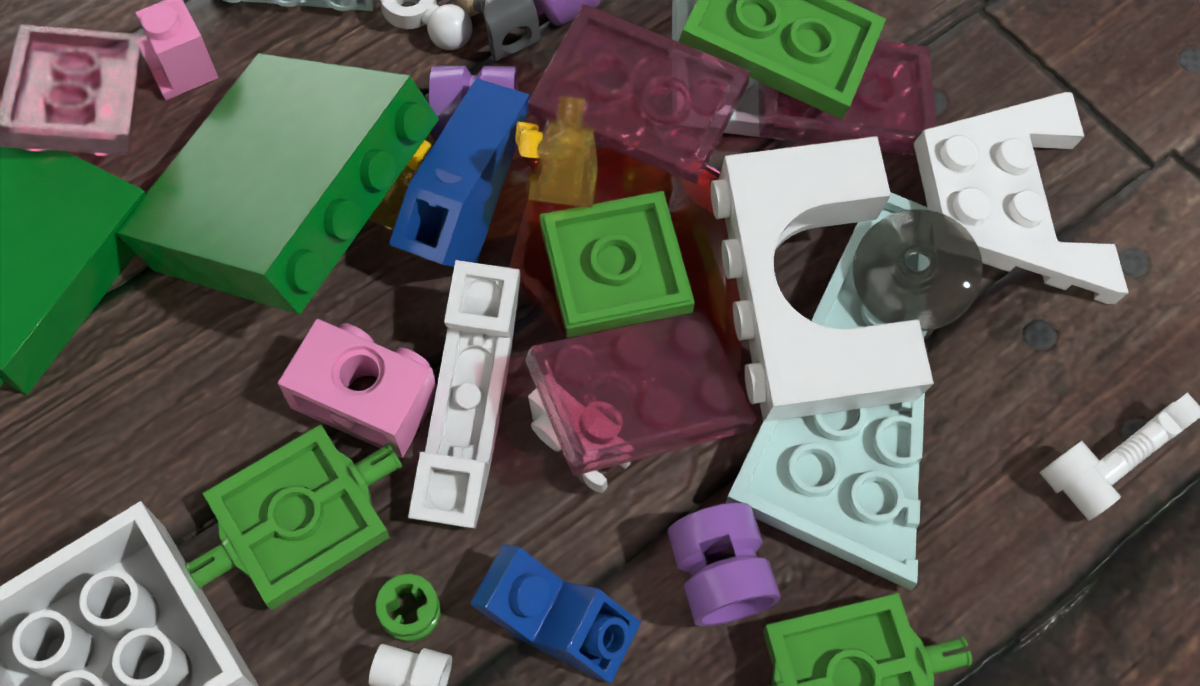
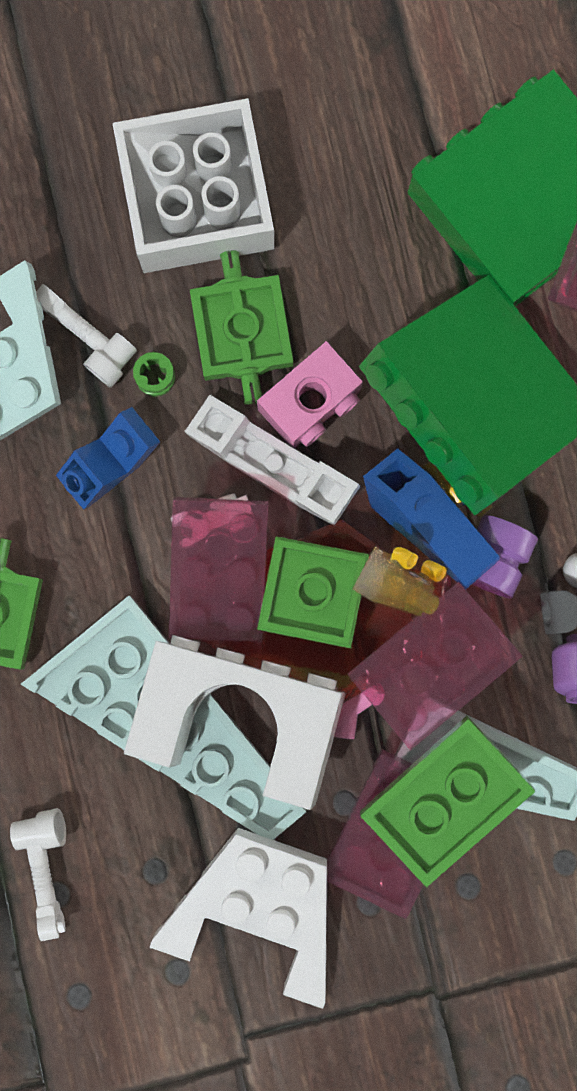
camera: 110 degrees right, 20 degrees up
(729, 587) = (69, 570): medium lavender wheel -> none
(931, 295) = (239, 818): clear smoke dish -> none

